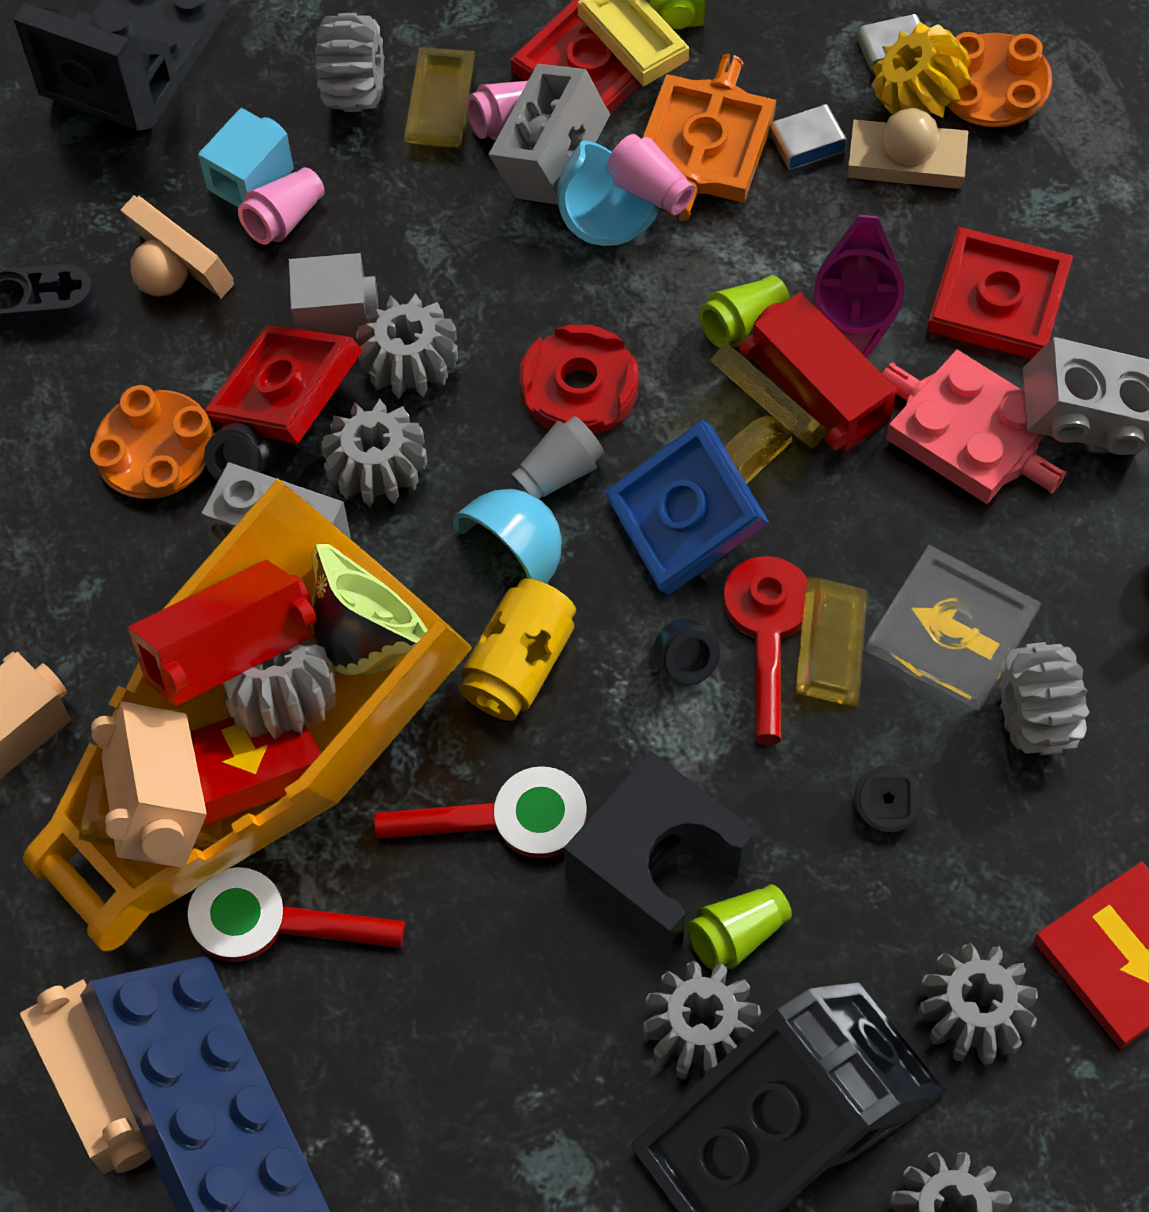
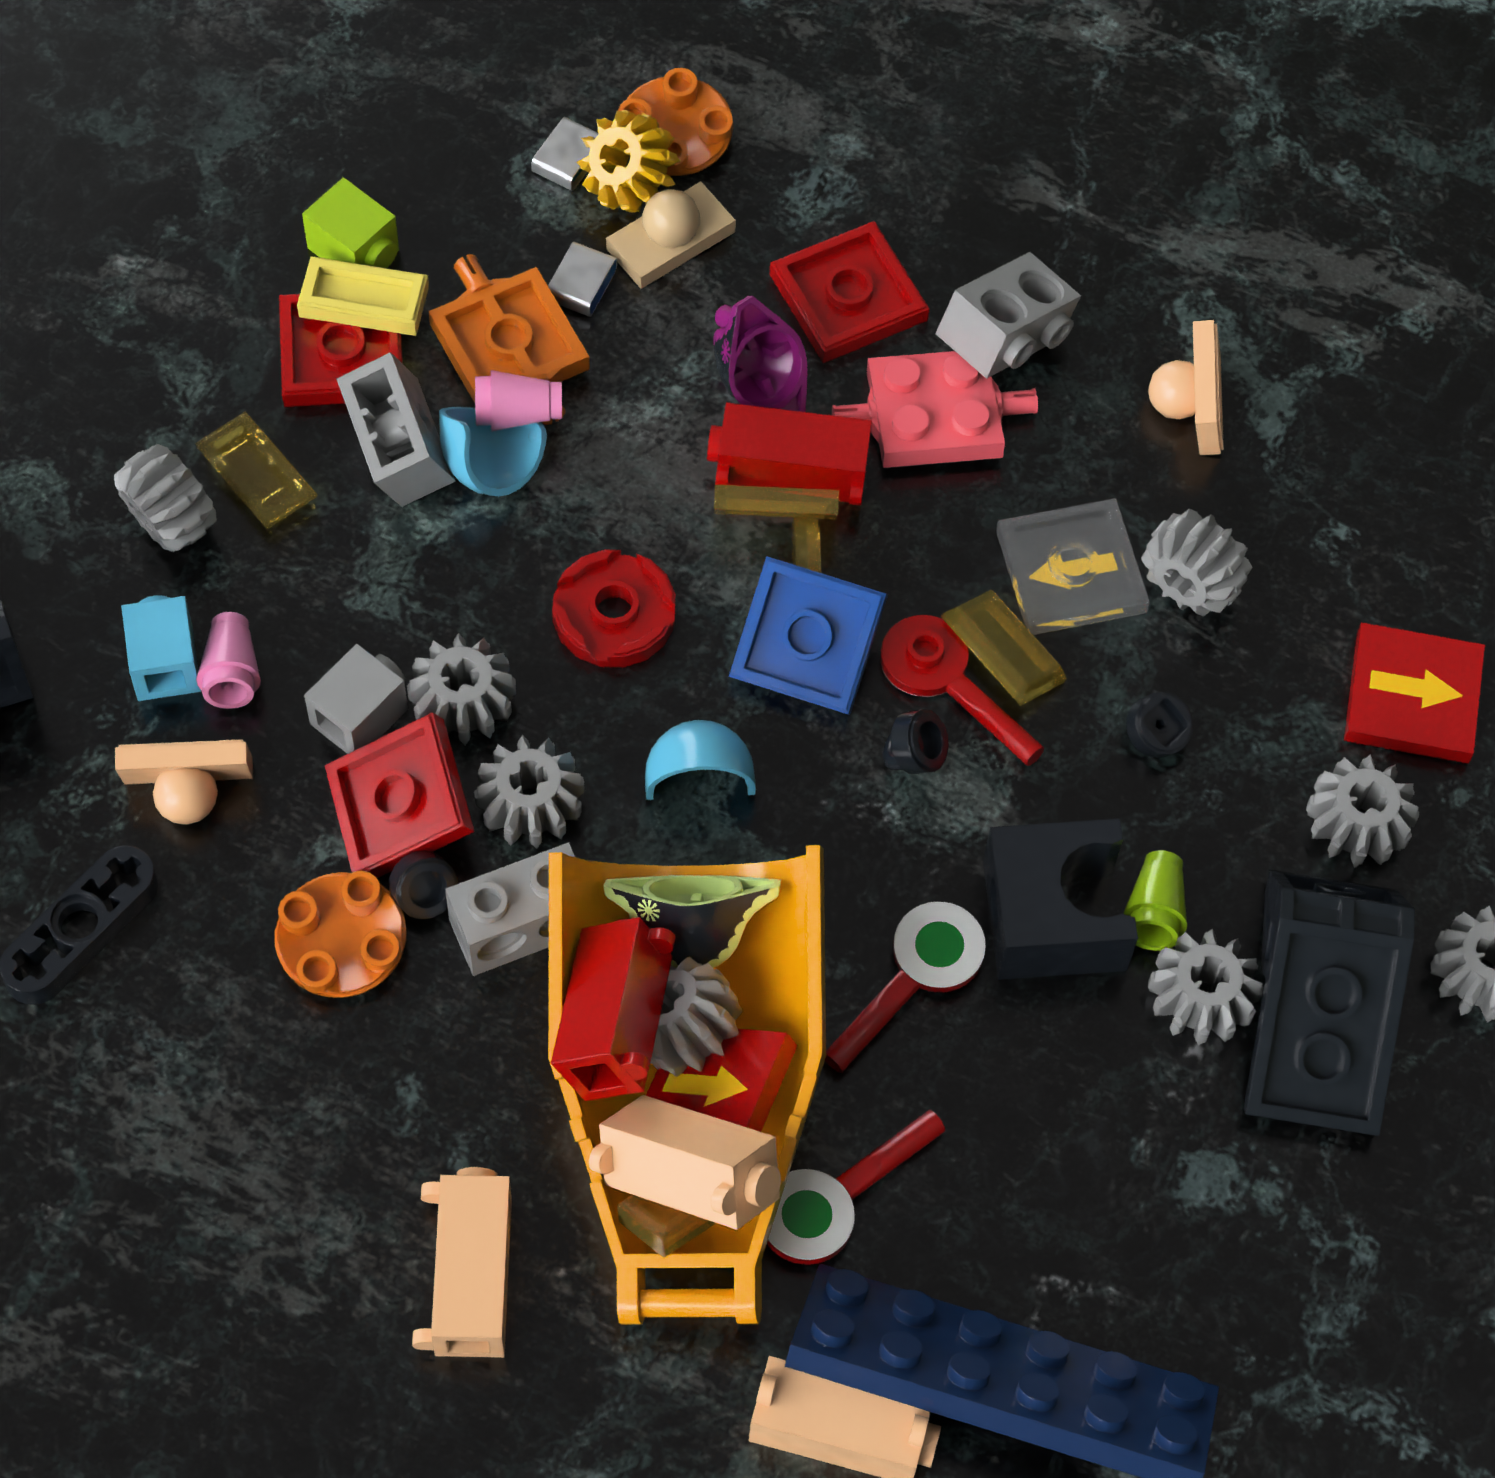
camera: 50 degrees left, 0 degrees up
(491, 107) = (323, 439): bright pink cone -> none
(517, 649) = (789, 815): yellow piece -> none
(558, 459) = (671, 678): light grey cone -> none
(733, 311) = (682, 458): lime cone -> none

